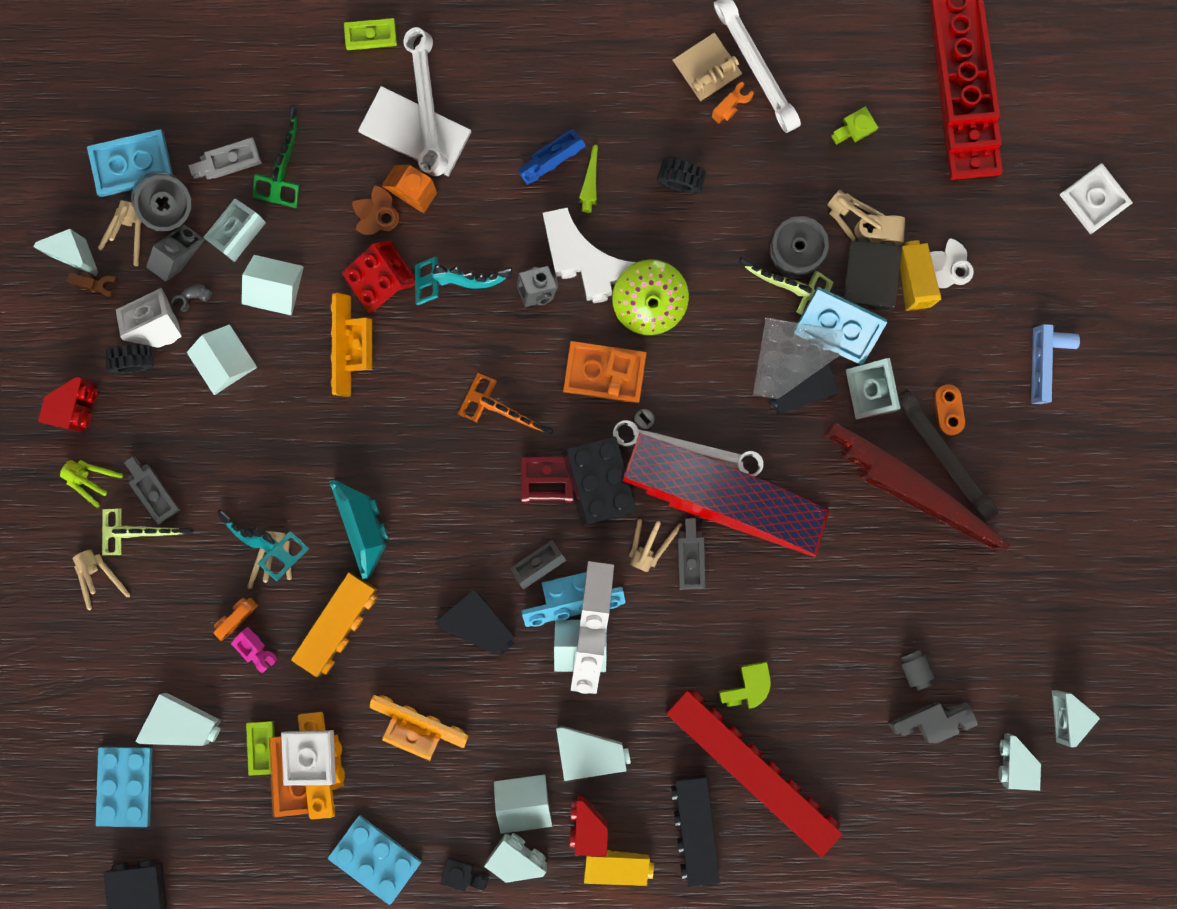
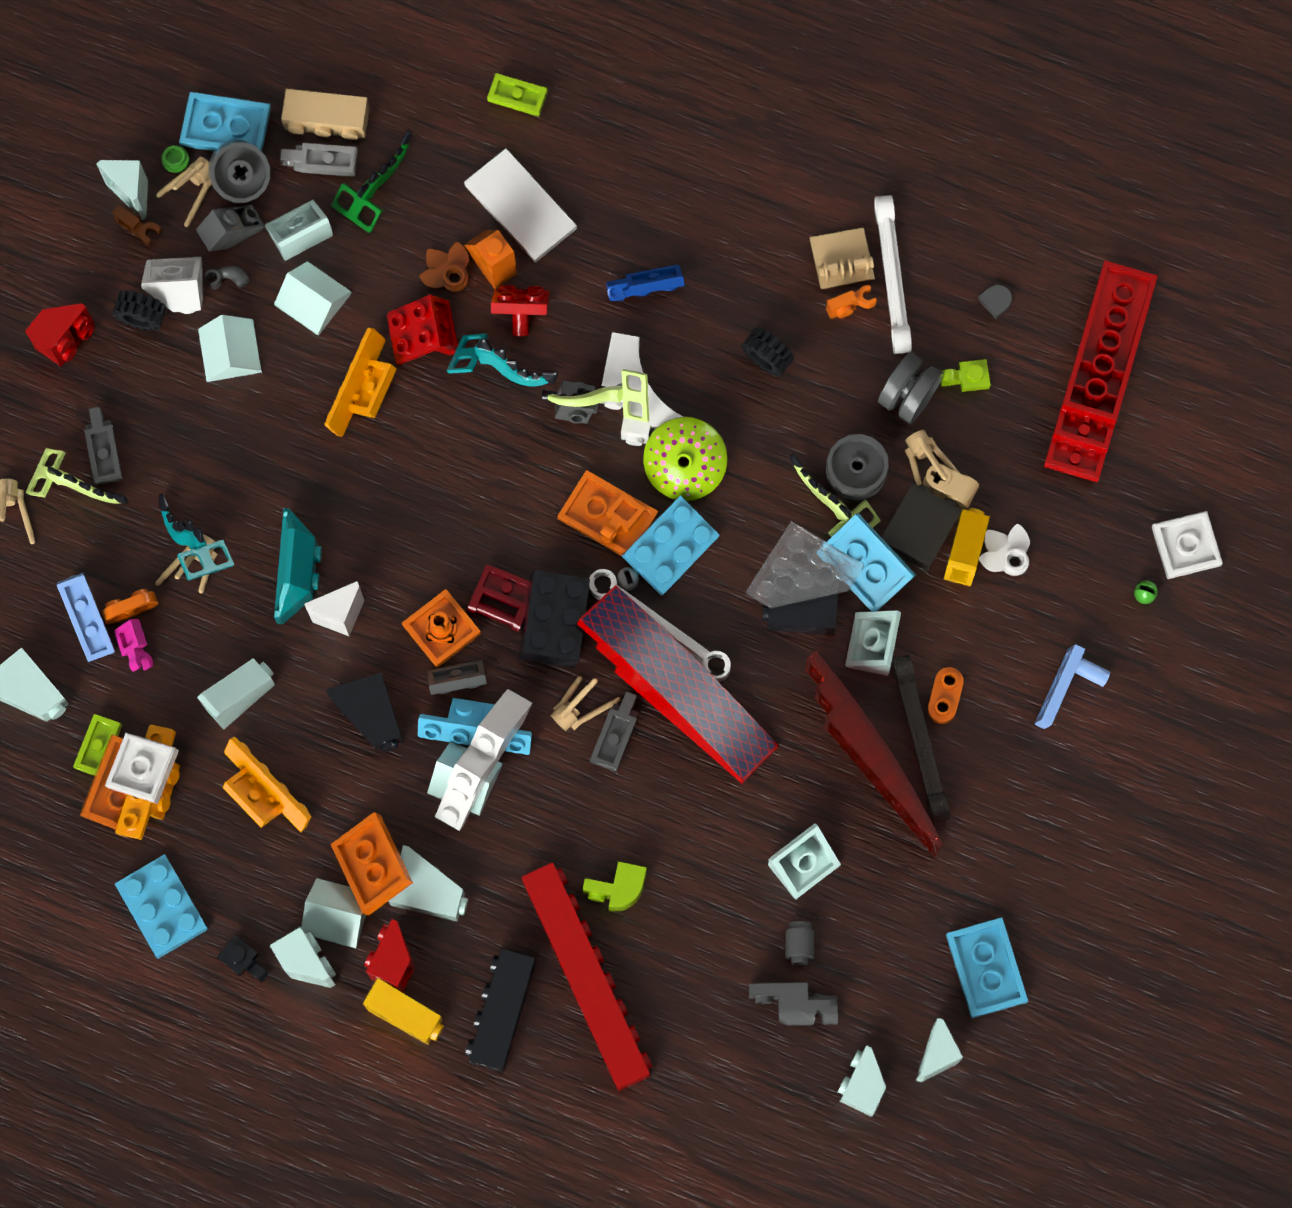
camera: 20 degrees right, 10 degrees down
(75, 474) = (37, 402): lime plant -> none
(100, 210) = (175, 159): none -> bright green plate
(201, 643) = (85, 617): none -> light blue piece
(212, 118) = (325, 114): none -> tan brick
(334, 625) = (226, 653): light orange brick -> none
(359, 655) = (237, 692): none -> light aqua slope
(414, 550) = (337, 609): none -> white slope
(425, 101) = (543, 180): white piece -> none
(453, 220) = (521, 305): none -> red plate
(490, 403) = (474, 493): orange piece -> none
(506, 527) = (441, 611): none -> orange plate
(536, 755) = (371, 863): none -> orange plate
(561, 270) = (611, 393): none -> yellowish green piece
(588, 193) = (668, 332): lime piece -> none
(669, 377) = (670, 545): none -> medium azure plate
(814, 158) = (908, 386): none -> dark grey wheel
(852, 50) = (996, 300): none -> dark grey tile
(892, 600) = (804, 861): none -> light aqua slope
(1078, 626) = (986, 968): none -> medium azure plate
(1079, 257) = (1144, 596): none -> bright green hinge

